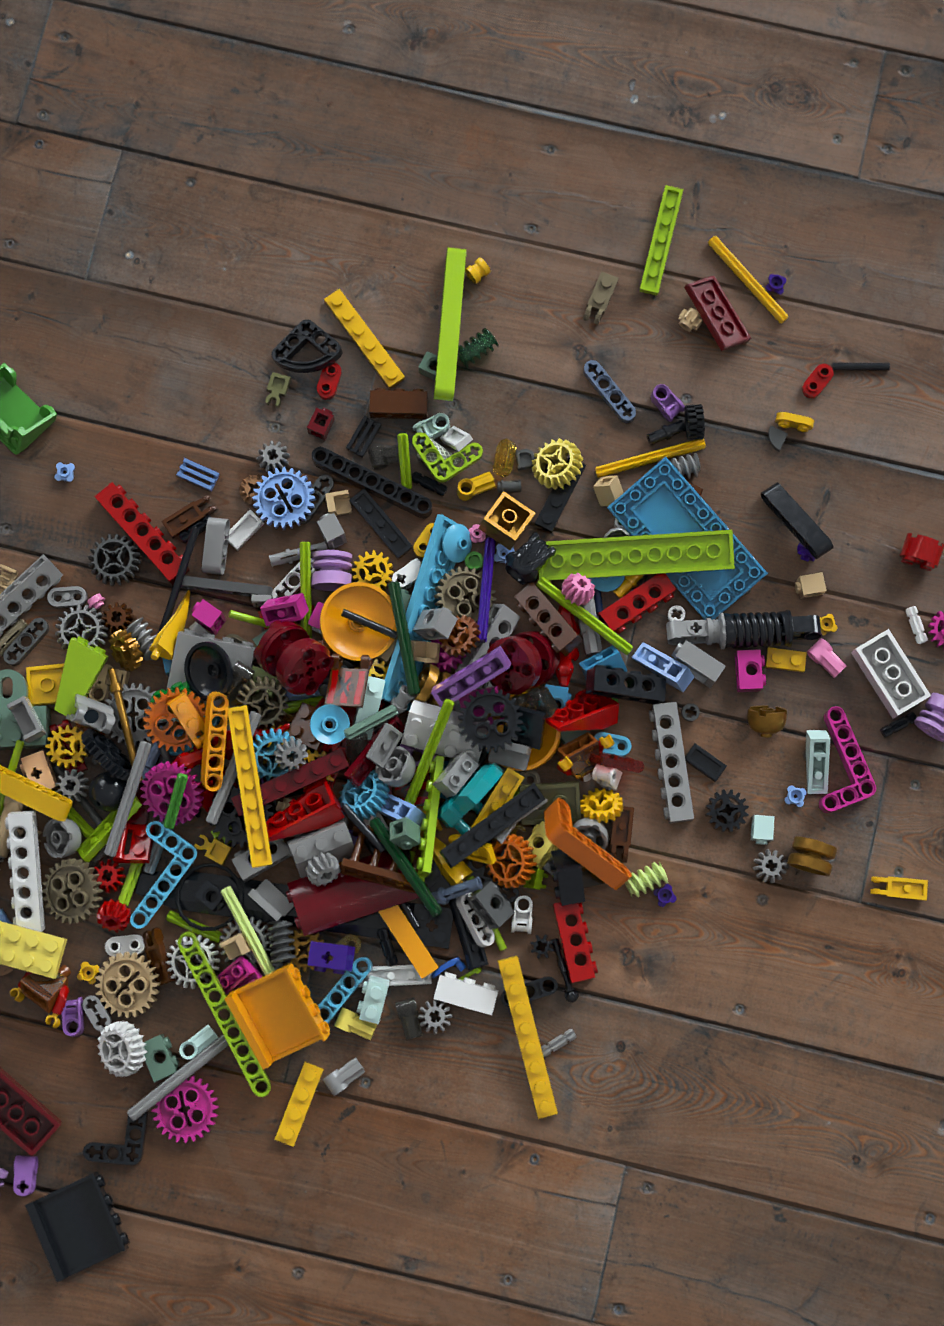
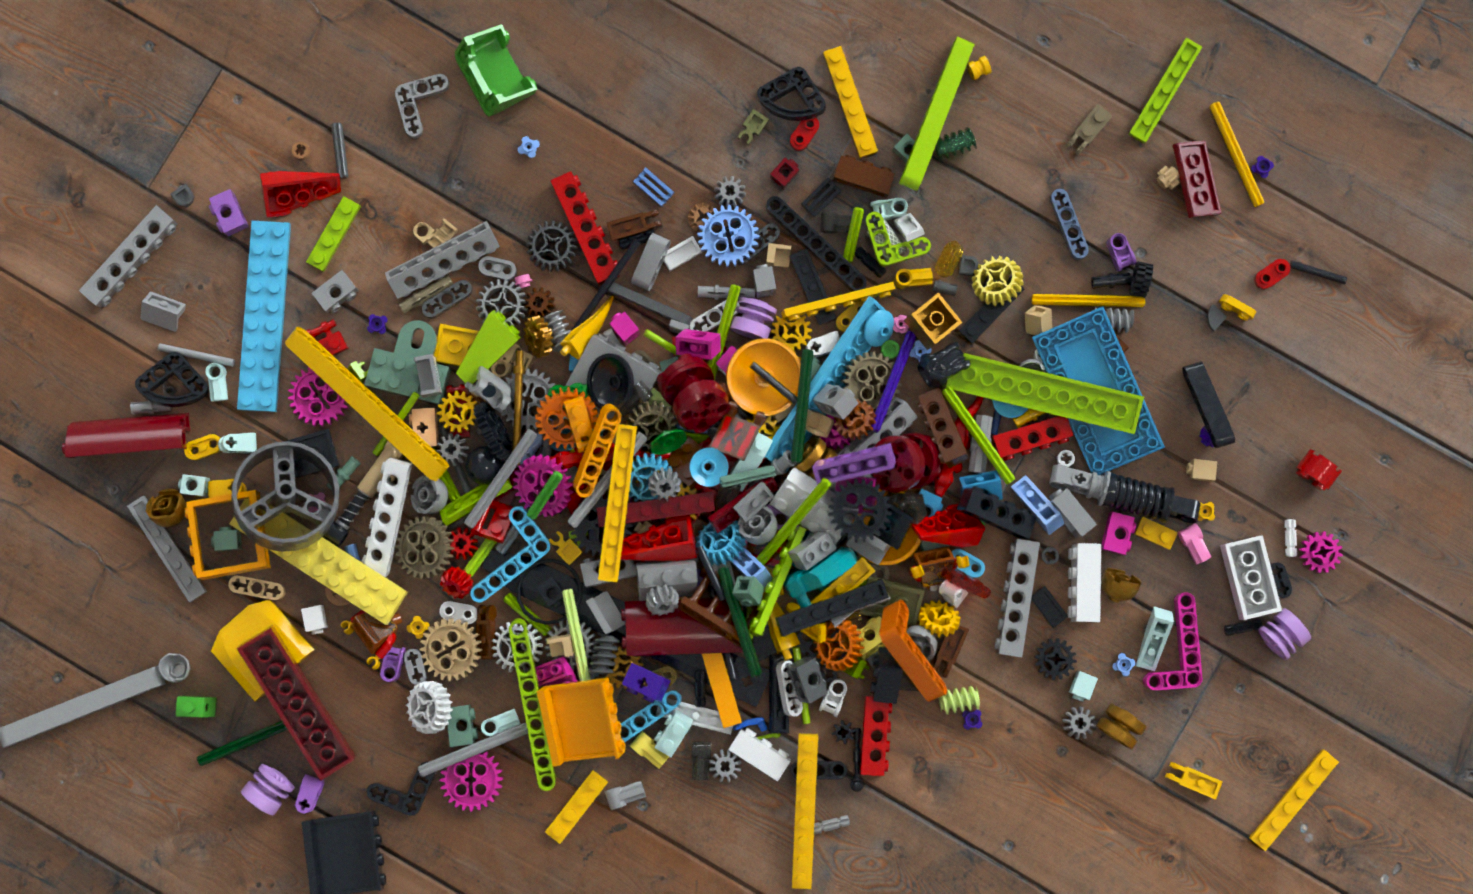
camera: 15 degrees right, 5 degrees up
(283, 712) = (668, 441): none -> green dish
(402, 533) = (830, 304): none -> yellow plate
(443, 895) = (766, 657): sand blue pin -> none
(578, 589) = (980, 408): bright pink gear -> none
(732, 726) = (1085, 582): none -> white brick
(923, 666) = (1283, 578): none -> black beam

